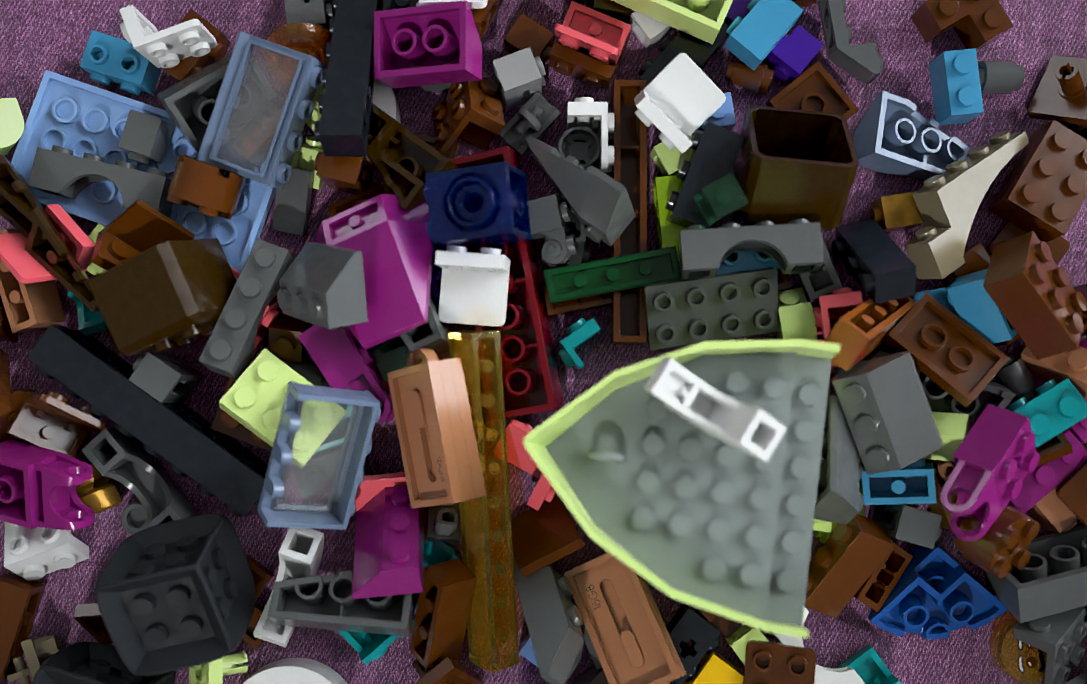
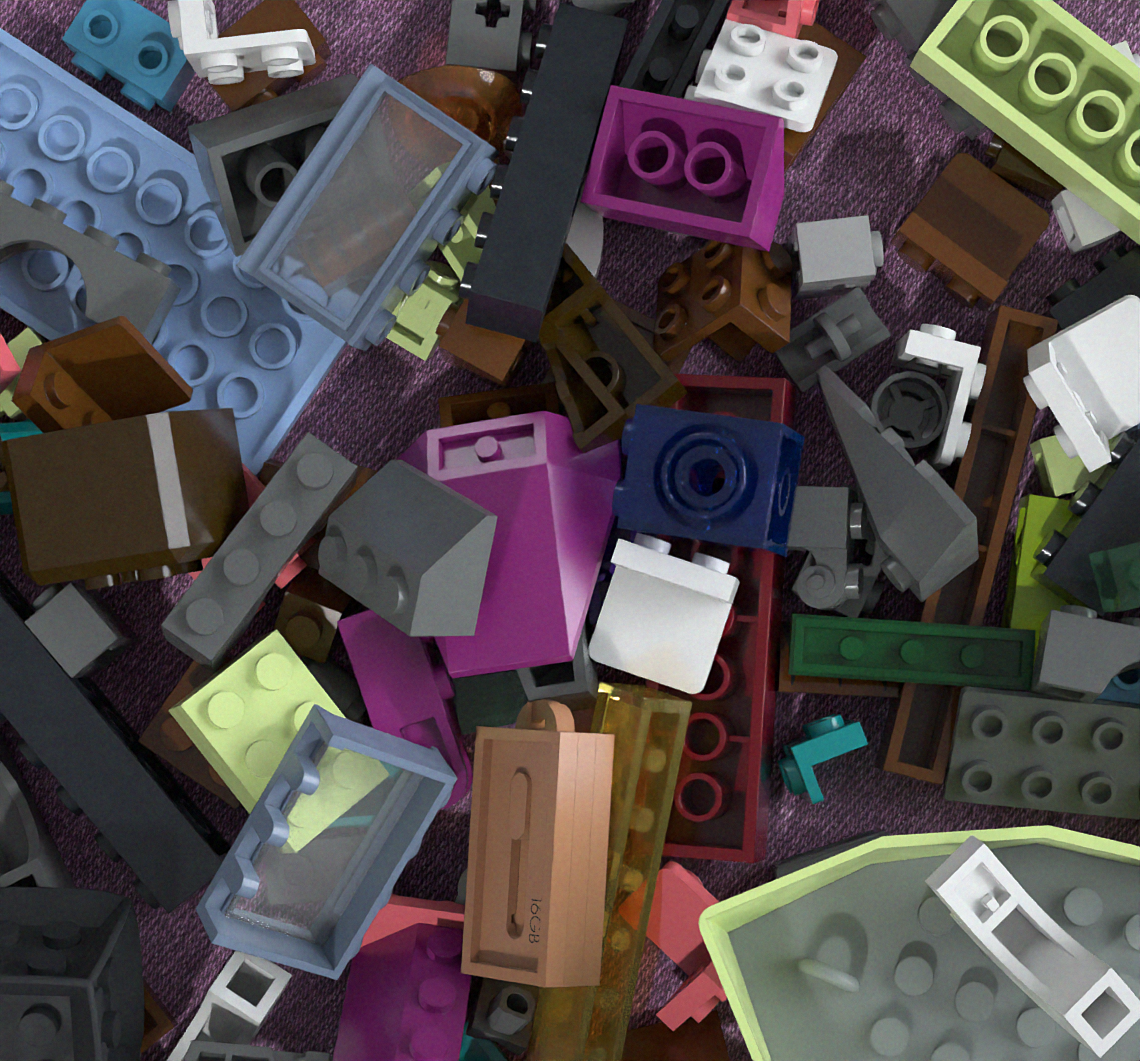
camera: 15 degrees right, 0 degrees up
(145, 137) = (148, 198): dark grey brick -> none
(205, 187) = (236, 315): reddish brown brick -> none
(293, 203) = (376, 377): dark grey tile -> none
(530, 34) = (867, 187): reddish brown brick -> none
(593, 33) = (985, 209): coral bracket -> none

